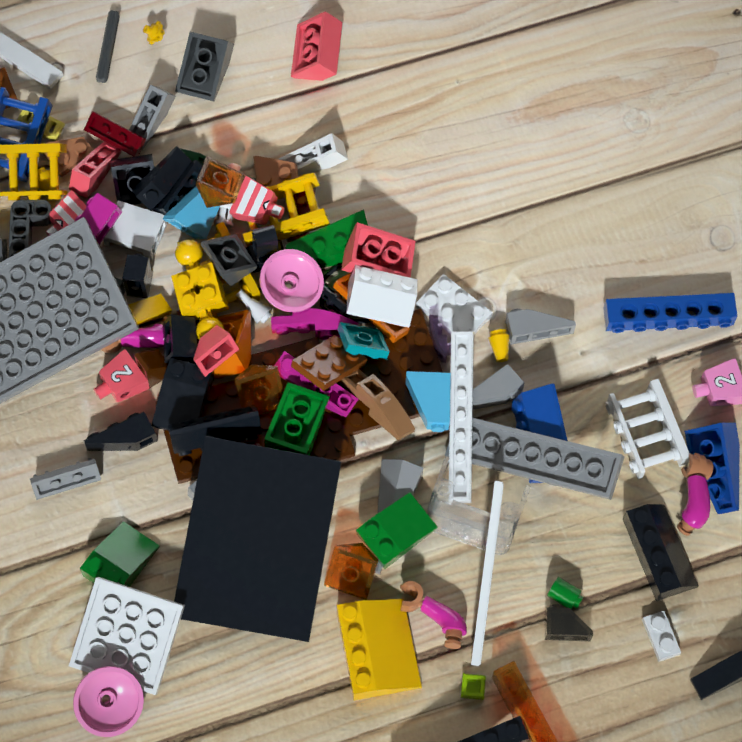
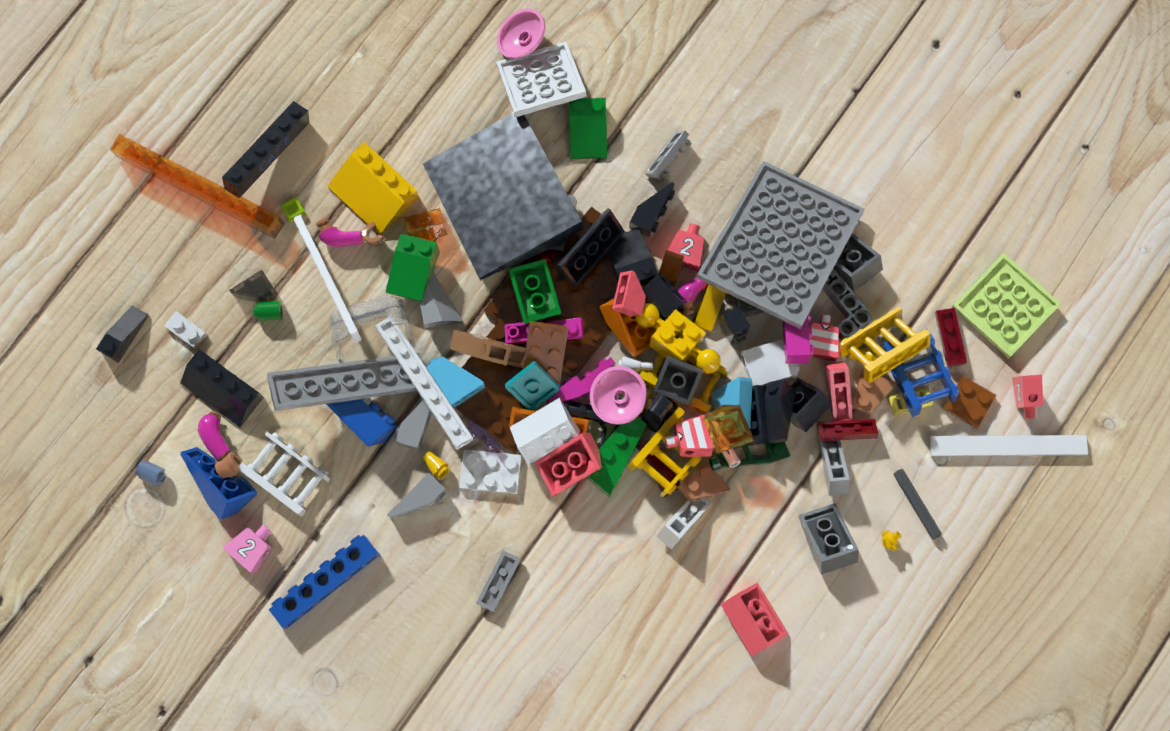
camera: 150 degrees right, 10 degrees up
(259, 387) = (581, 300): clear orange slope -> none
(512, 214) = (498, 581): none -> light grey plate

